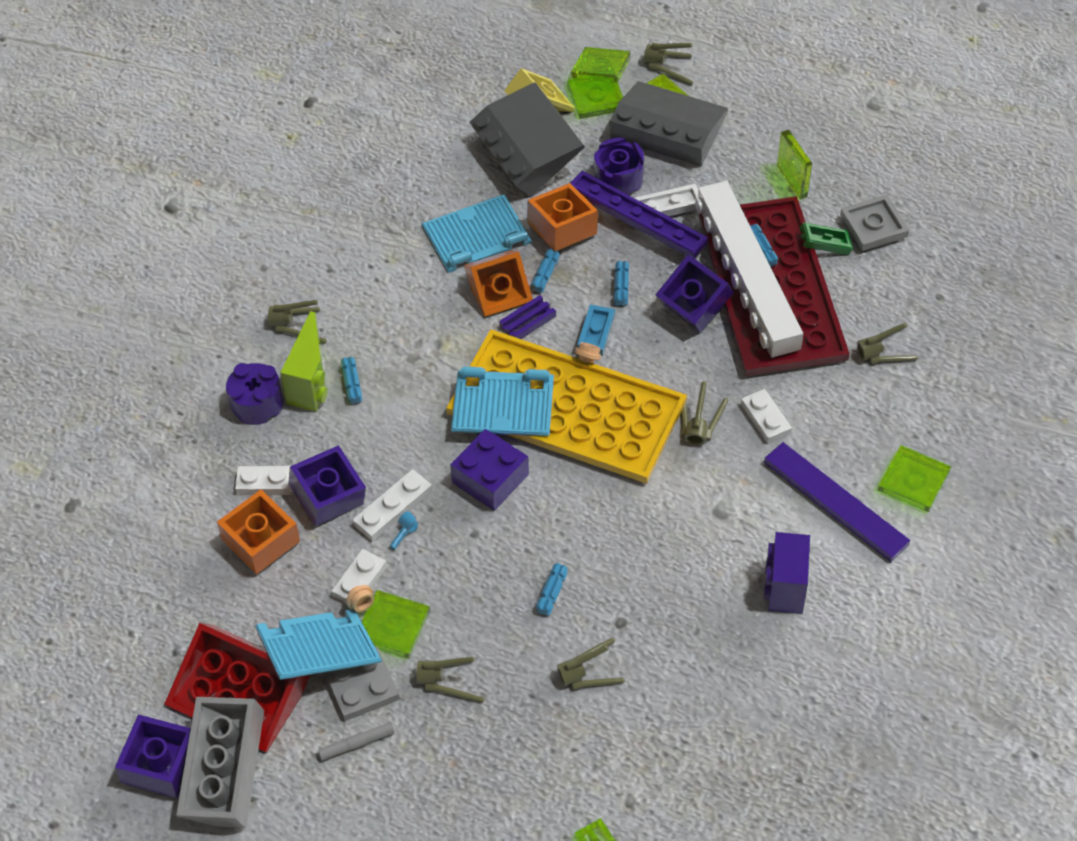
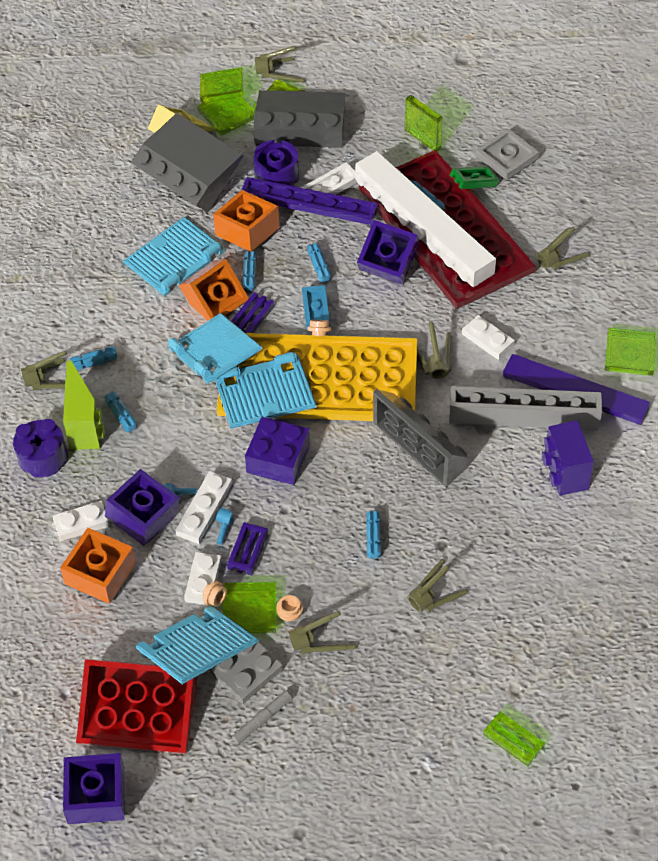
camera: 20 degrees left, 0 degrees up
(221, 761) = (155, 773): light grey slope -> none
(348, 316) = (94, 358): none -> dark azure axle
(367, 477) = (179, 491): none -> dark azure hand
(411, 583) = (242, 566): none -> dark purple tile
(432, 638) = (289, 608): none -> light nougat plate
(471, 340) = (214, 345): none -> medium azure window
(638, 499) = (418, 437): none -> dark grey slope
(767, 504) = (524, 407): none -> light grey brick

